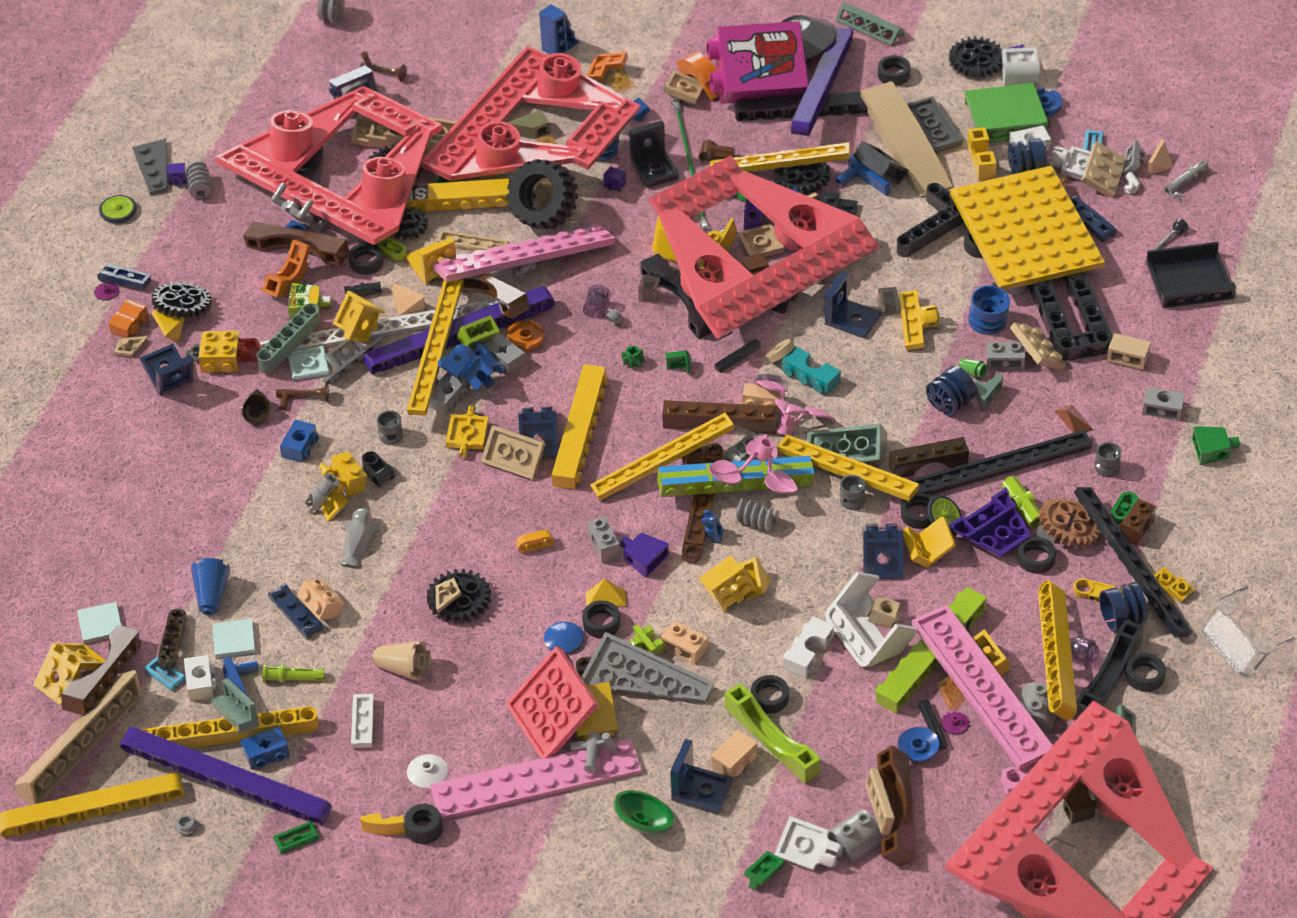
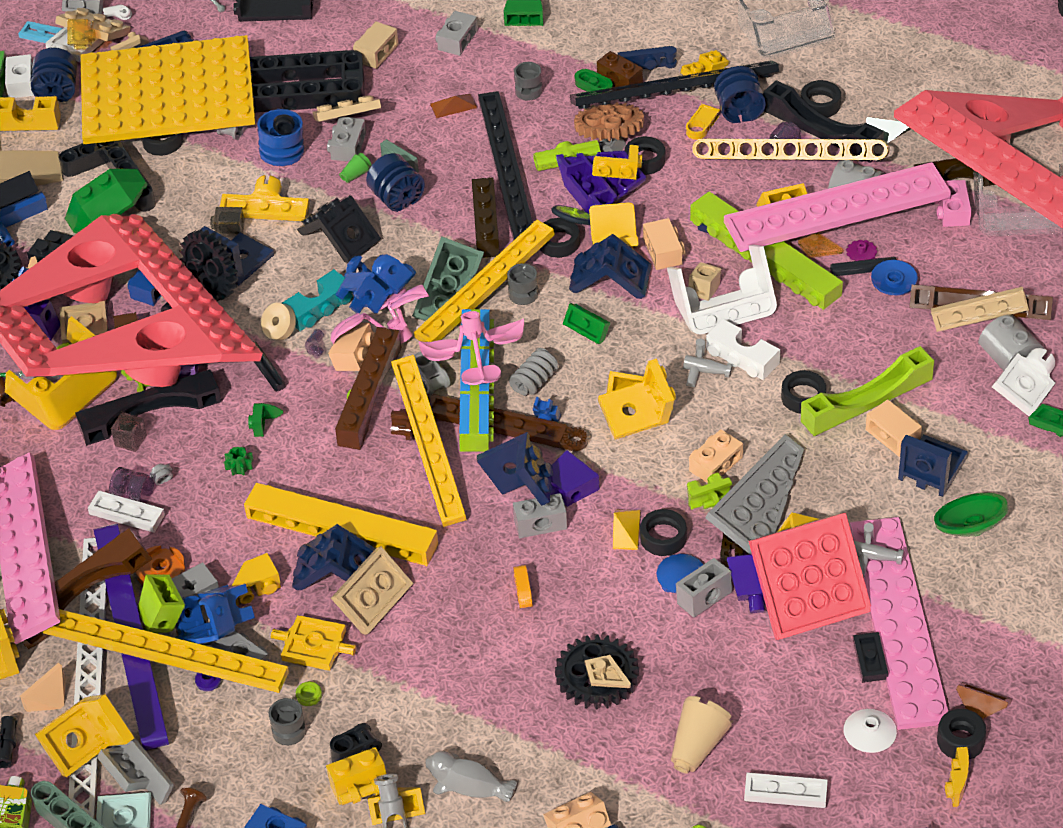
camera: 80 degrees left, 0 degrees up
(423, 439) = (308, 693): none -> lime tile
(462, 836) = (981, 701): none -> slope
(493, 761) = (870, 657): none -> black plate
(521, 387) = (260, 574): none -> yellow slope
(539, 643) = (703, 587): none -> light grey brick
(573, 310) = (126, 511): none -> white plate
(636, 508) = (529, 469): none -> dark blue bracket
(789, 621) = (699, 364): none -> light grey piece
(815, 292) = (209, 263): none -> black gear
(821, 540) = (586, 323): none -> green plate
(823, 389) = (374, 286): none -> blue piece
(890, 220) = (105, 195): none -> green wedge
(896, 360) = (335, 219): none -> black bracket
(921, 578) = (663, 243): none -> light nougat brick
(990, 302) = (283, 124): none -> black plate
(1001, 538) = (618, 166): none -> yellow bracket
(1076, 159) = (80, 33): none -> clear yellow brick
(1089, 200) = (133, 42): none -> tan piece
(1164, 539) = (650, 57): none -> dark blue plate

